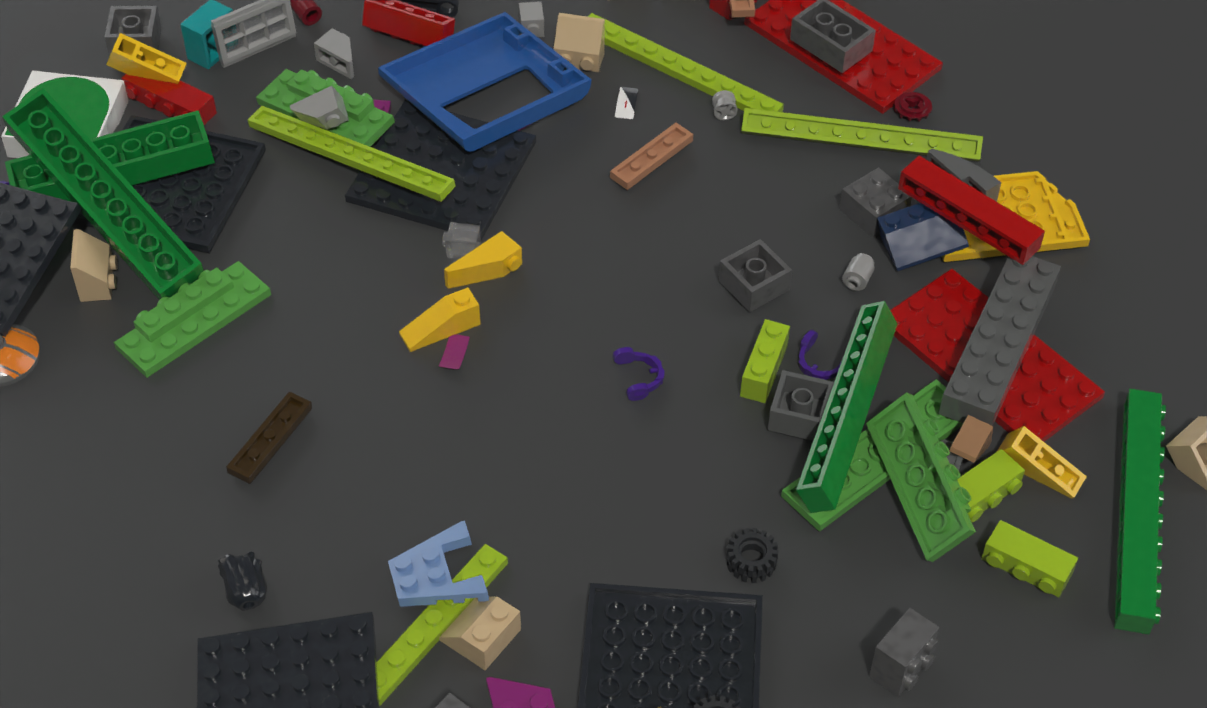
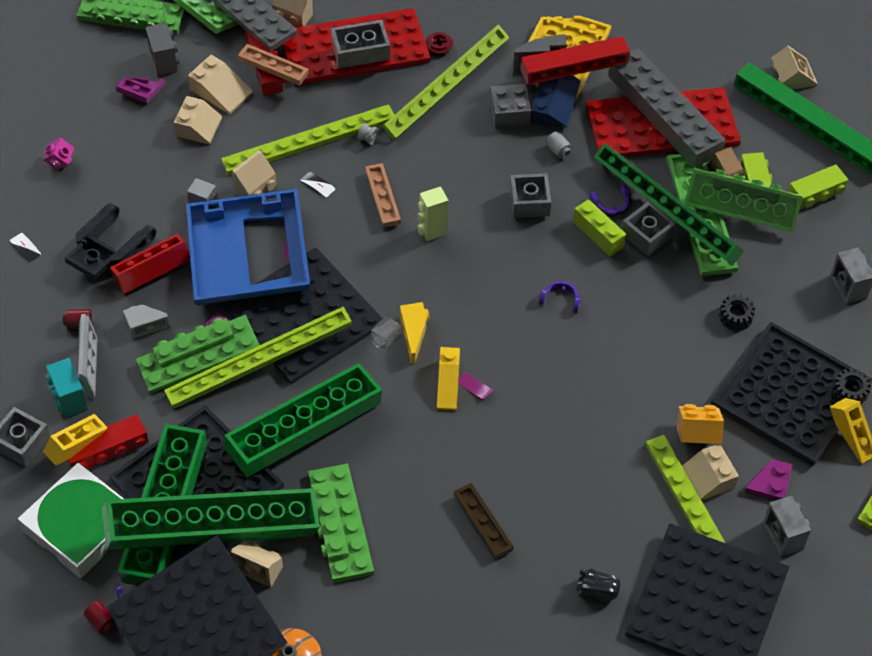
camera: 60 degrees left, 5 degrees up
(291, 220) = (302, 419): none -> green brick
(322, 109) = (215, 351): light grey slope -> none
(423, 574) = (654, 484): medium blue wing -> none
(535, 580) = (700, 424): none -> light orange brick
(643, 196) = (433, 214): none -> yellowish green brick
(1042, 462) = (756, 142): yellow slope -> none

